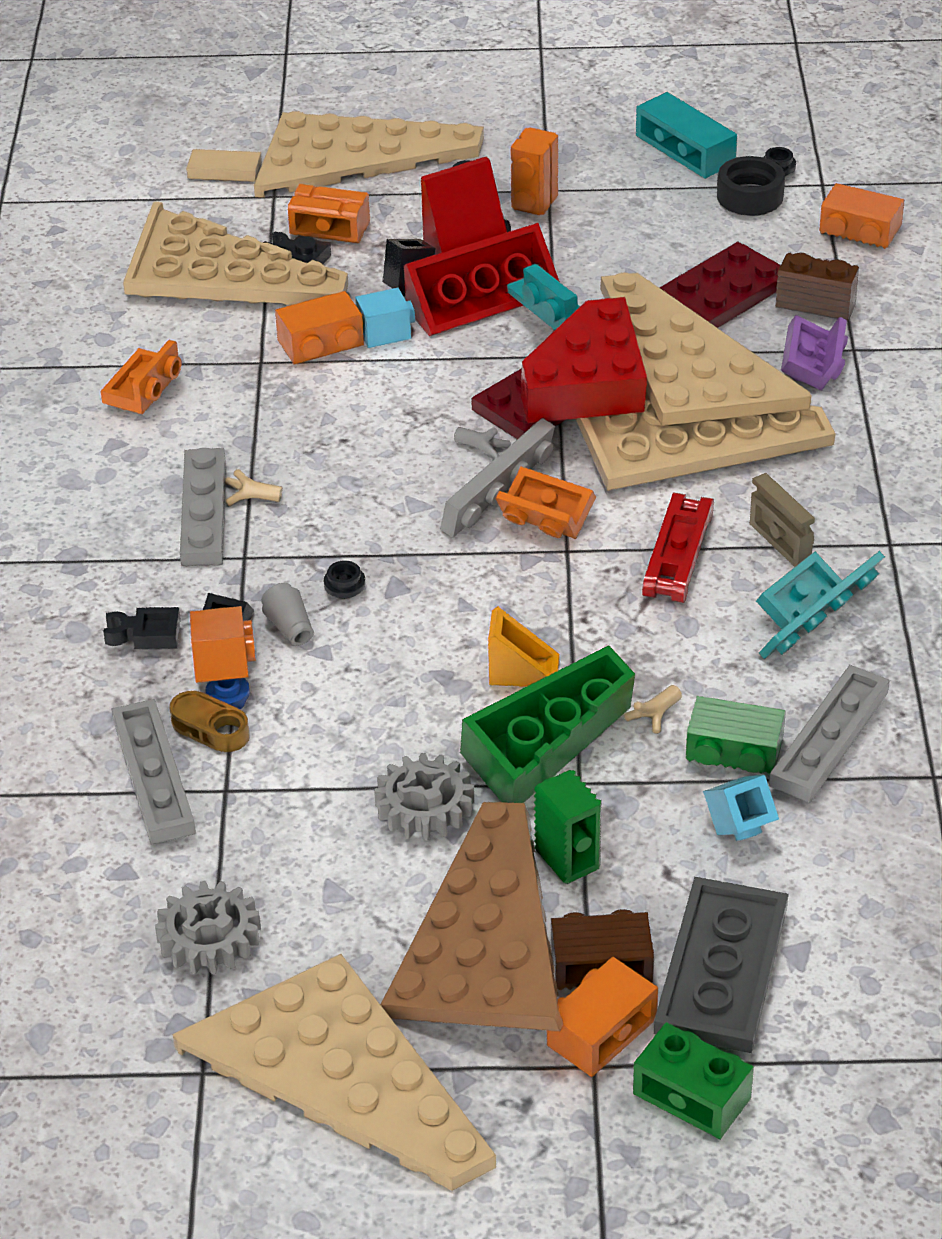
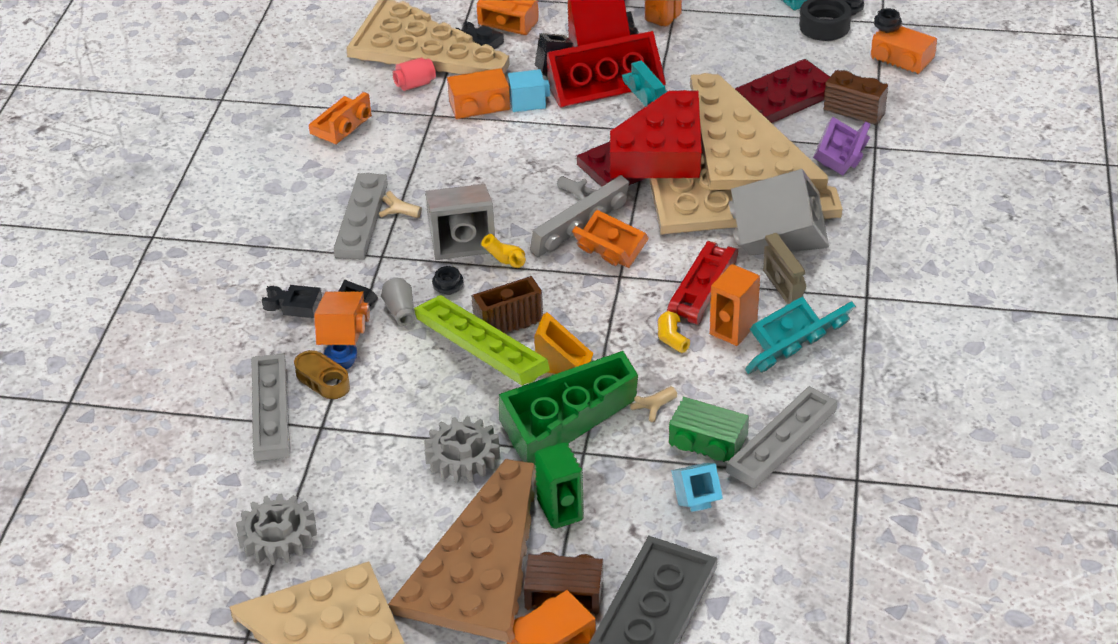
camera: 10 degrees right, 0 degrees up
(224, 308) = (414, 73): none -> coral brick
(343, 499) = (459, 220): none -> light grey slope
(410, 536) = (503, 252): none -> yellow arm
(418, 651) = (482, 340): none -> lime plate
(437, 607) = (510, 305): none -> reddish brown brick
(650, 616) = (668, 332): none -> yellow arm
(732, 571) = (734, 304): none -> orange brick
(756, 440) = (779, 205): none -> light grey slope
(838, 181) = (888, 20): none -> black plate

